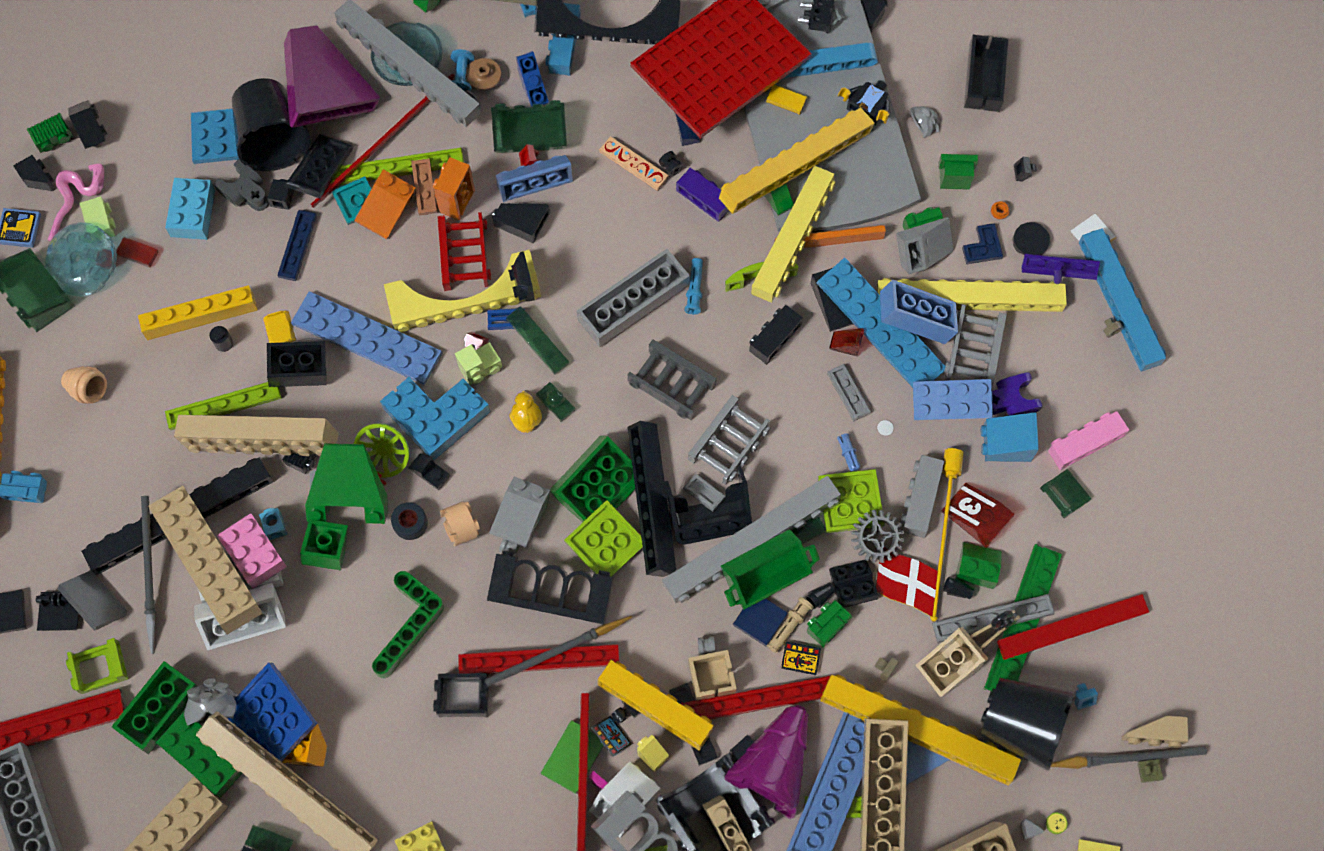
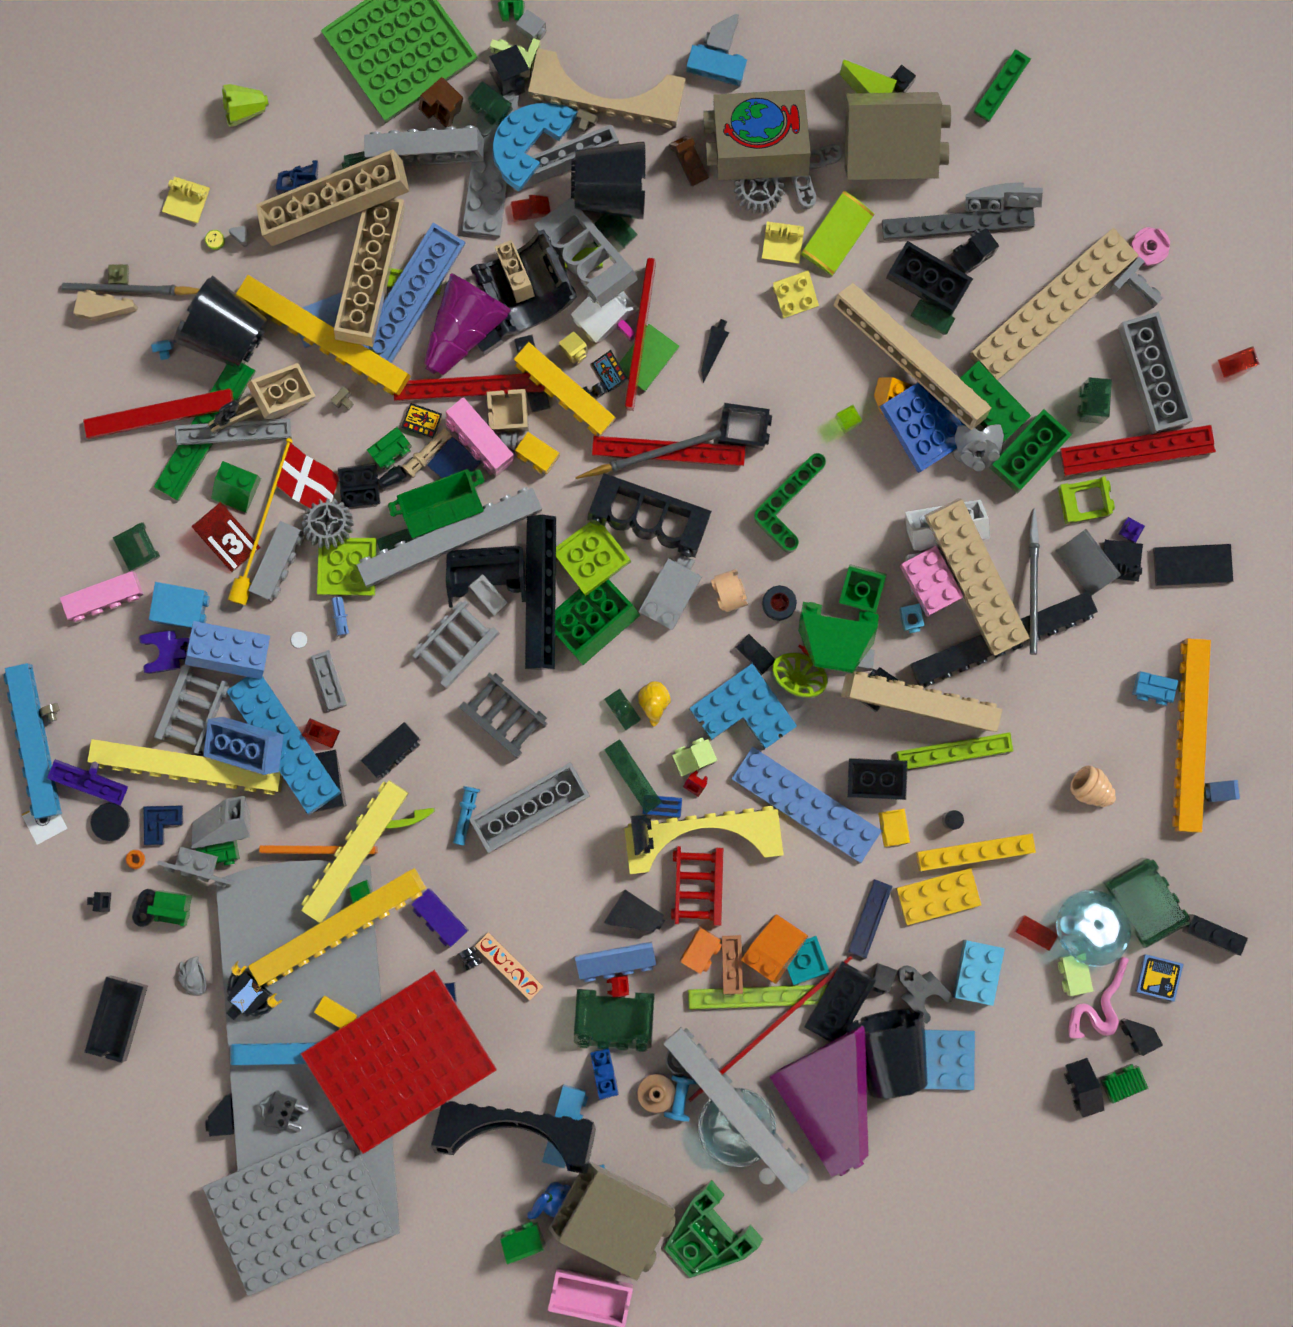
camera: 170 degrees left, 15 degrees up
(49, 643) = (1131, 530): none -> dark purple tile
(87, 769) = (1095, 400): none -> clear green brick
(233, 271) = (938, 896): none -> yellow plate
(352, 717) = (848, 419): none -> clear neon green brick
(501, 786) = (715, 342): none -> black bar
(675, 637) = (537, 453): none -> yellow brick
(740, 645) = (478, 437): none -> bright pink piece
(940, 205) = (196, 863): none -> light grey bracket
(957, 588) = (262, 467): black cone -> none
(982, 171) = (142, 907): none -> black plate

